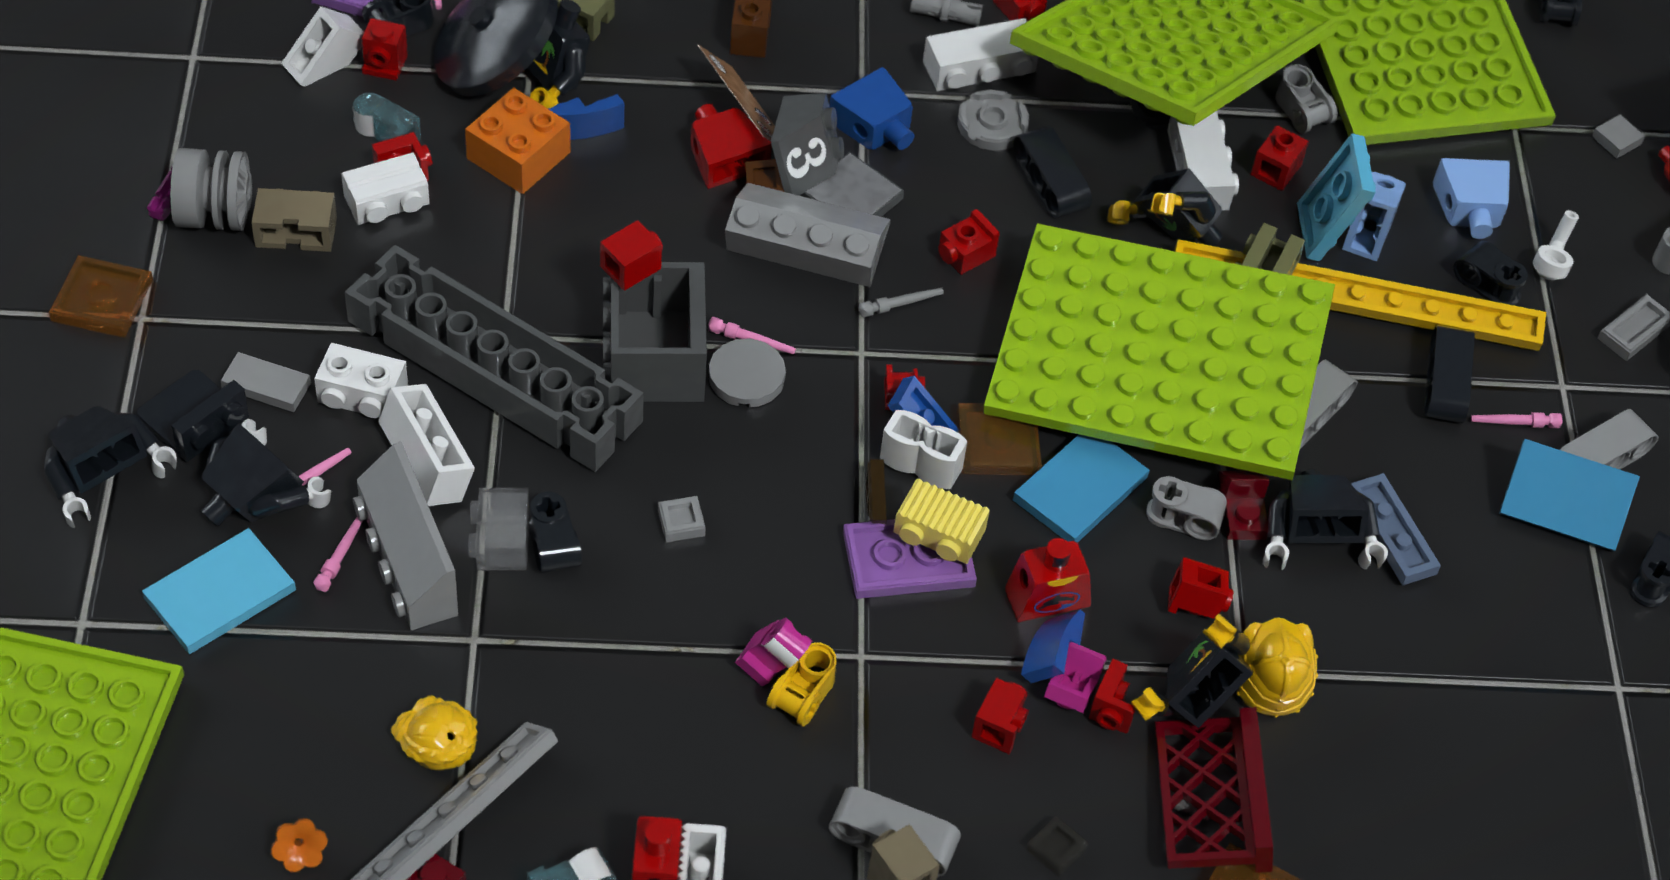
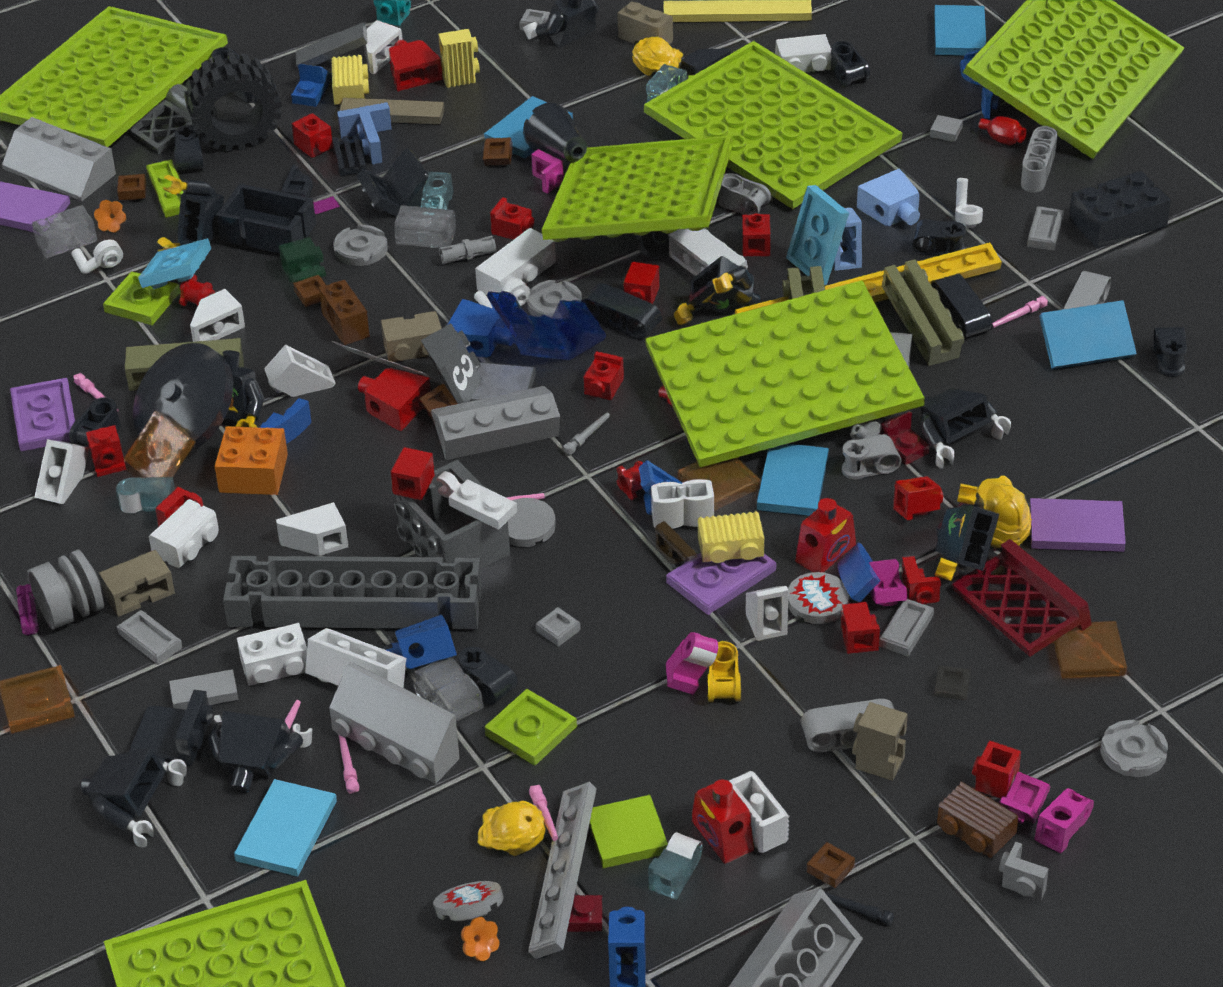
camera: 25 degrees left, 10 degrees down
(263, 289) = (149, 637): none -> light grey tile
(318, 792) = (468, 900): none -> light grey tile
(434, 76) = (159, 448): none -> clear orange tile
(492, 721) = (541, 803): none -> bright pink piece
(514, 459) = (433, 639): none -> blue torso
(518, 259) = (314, 530): none -> white slope
(555, 810) = (627, 831): none -> lime tile
(557, 623) = (530, 726): none -> lime tile
(648, 63) = (297, 373): none -> white slope
(680, 326) = (477, 500): none -> white plate
(791, 75) = (404, 337): none -> dark tan brick
(911, 636) = (768, 612): none -> white slope
(941, 156) = (559, 337): none -> clear blue slope
(949, 88) = (514, 286): none -> white plate
(989, 648) = (817, 597): none -> tile
(1061, 745) = (906, 627): none -> light grey tile
(1098, 151) = (642, 281): none -> red brick
(1204, 474) = (865, 430): none -> light grey plant
(1364, 731) = (1077, 524): none -> medium lavender tile
(1391, 359) = (923, 313): none -> olive brick
(1406, 547) = (1022, 414): sand blue plate -> none

